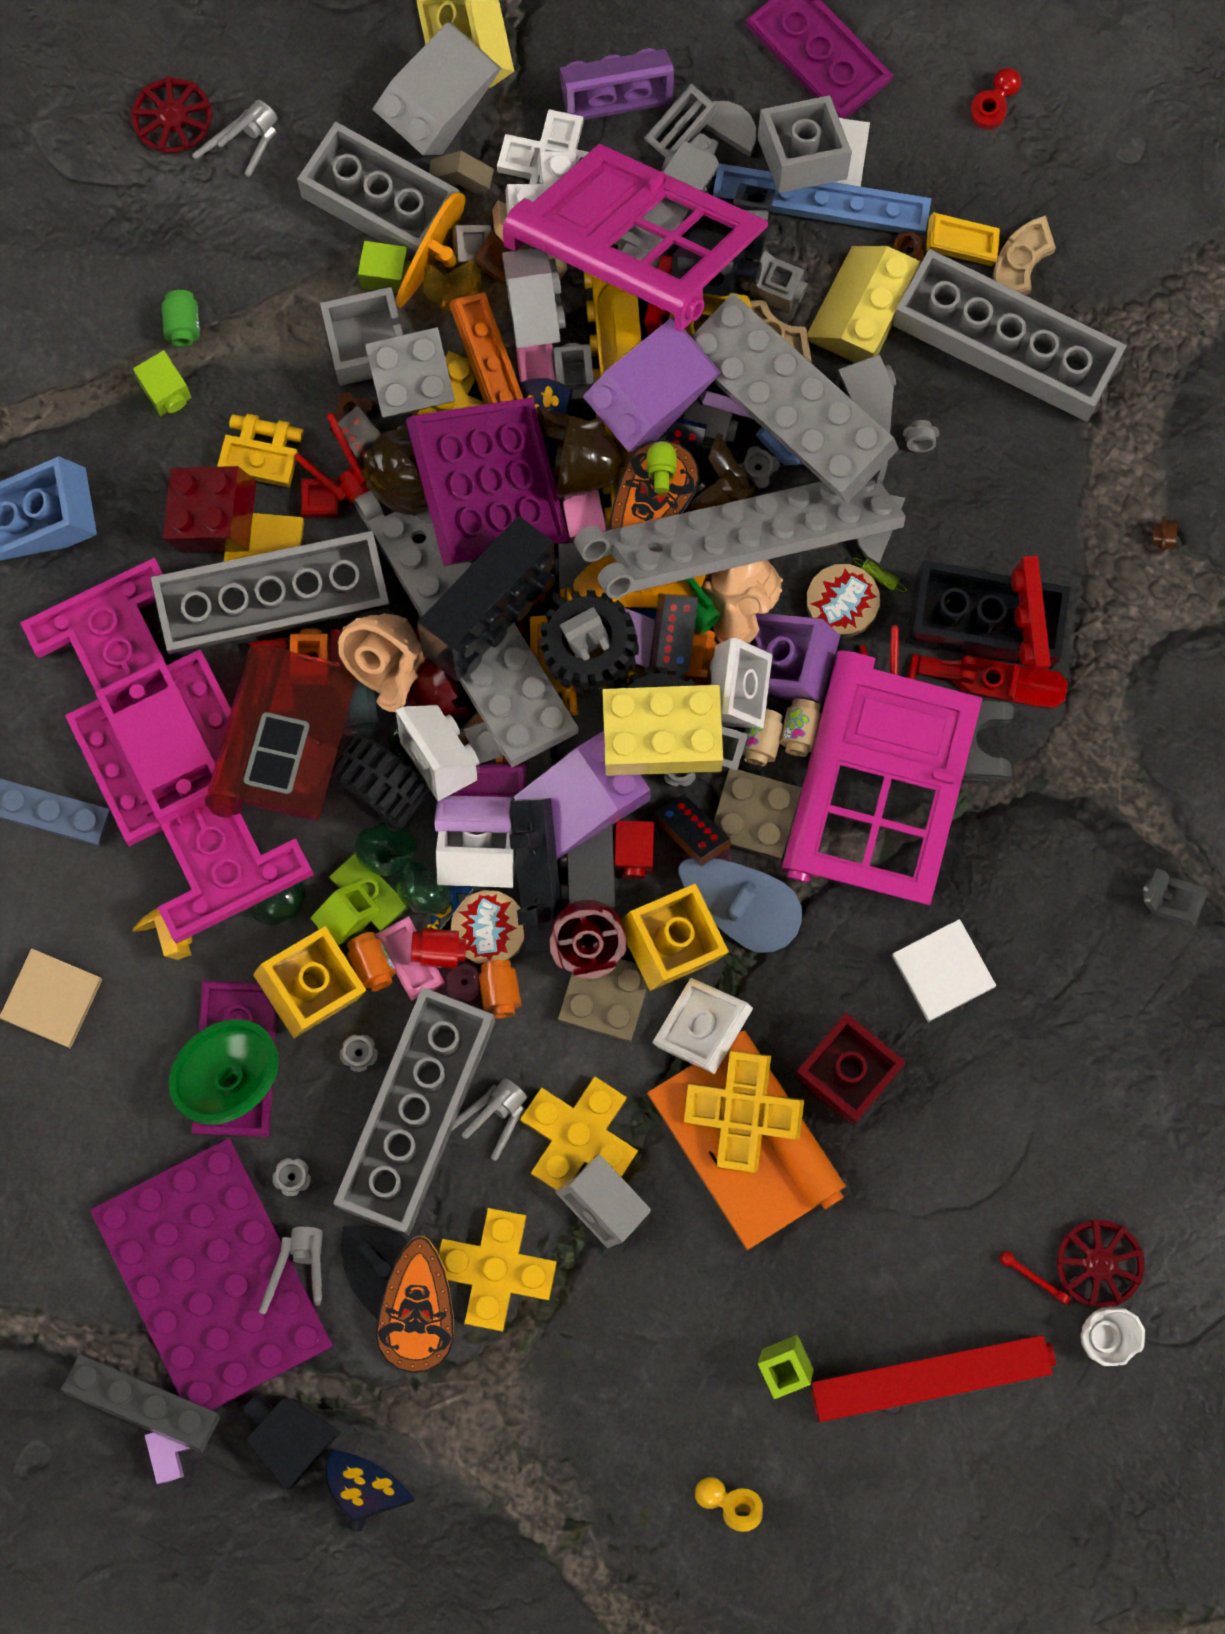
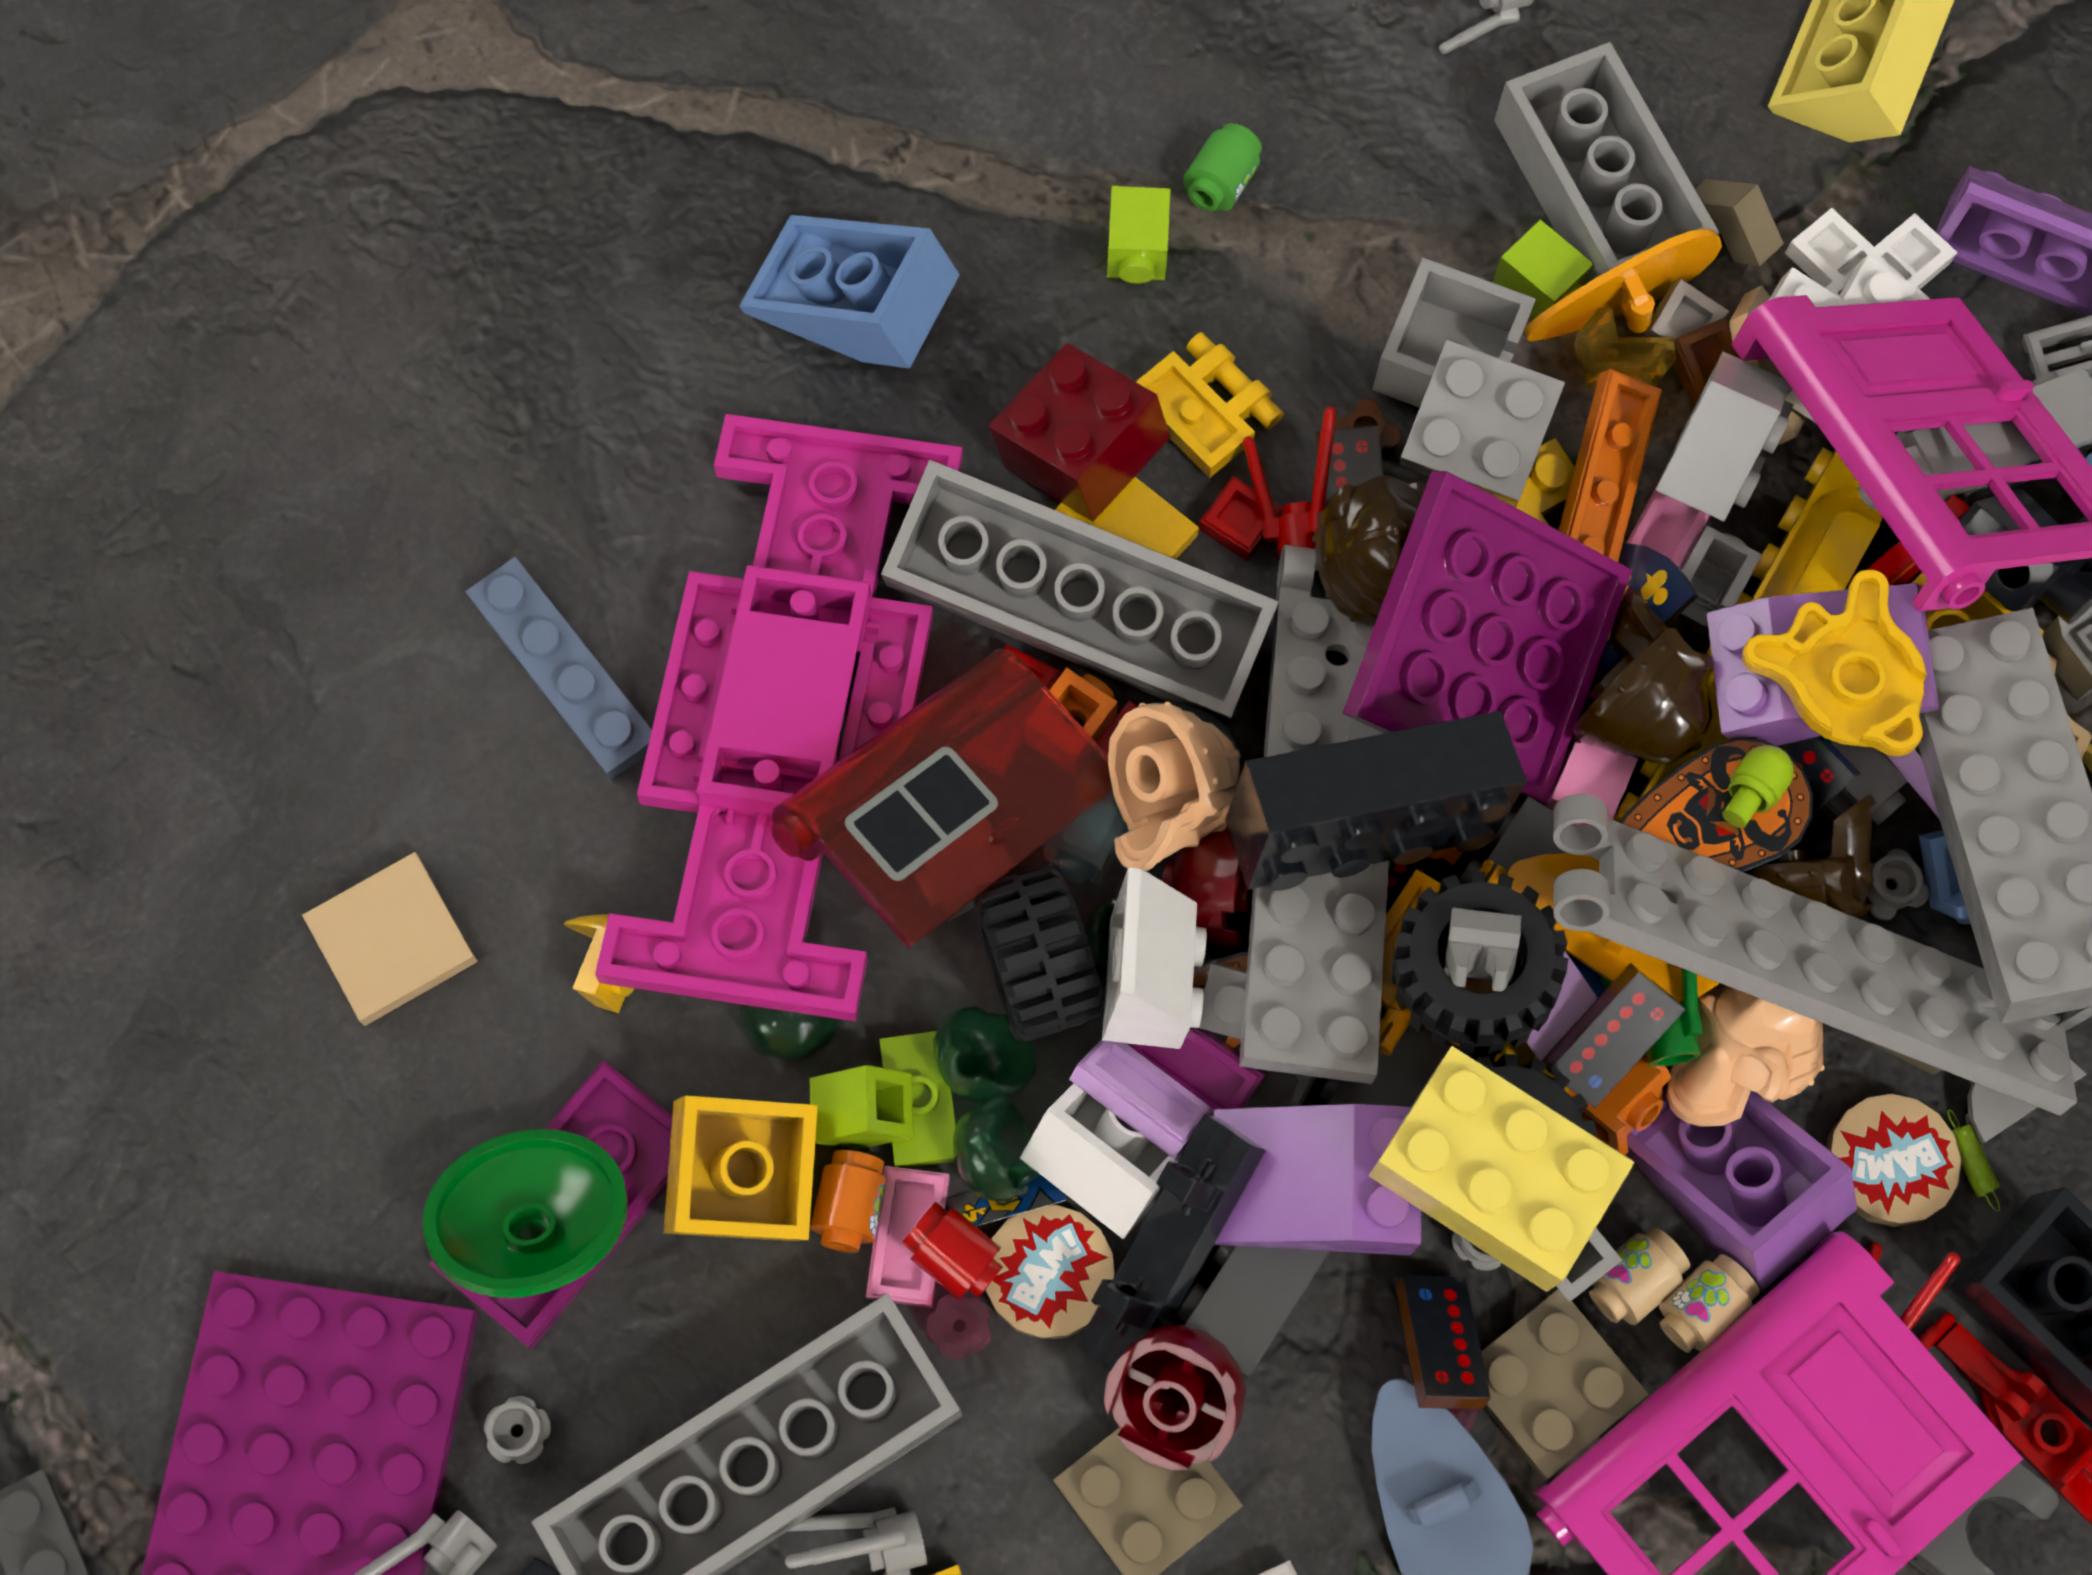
camera: 35 degrees right, 5 degrees down
(353, 1043) = (722, 1313): light grey plate -> none
(437, 90) = (1778, 90): light grey slope -> none
(499, 988) = (1000, 1373): orange brick -> none
(634, 849) = (1337, 1308): red brick -> none
(667, 384) = (1849, 672): none -> yellow tile
(673, 937) = (1305, 1485): yellow brick -> none
(743, 682) = (1673, 1176): white slope -> none

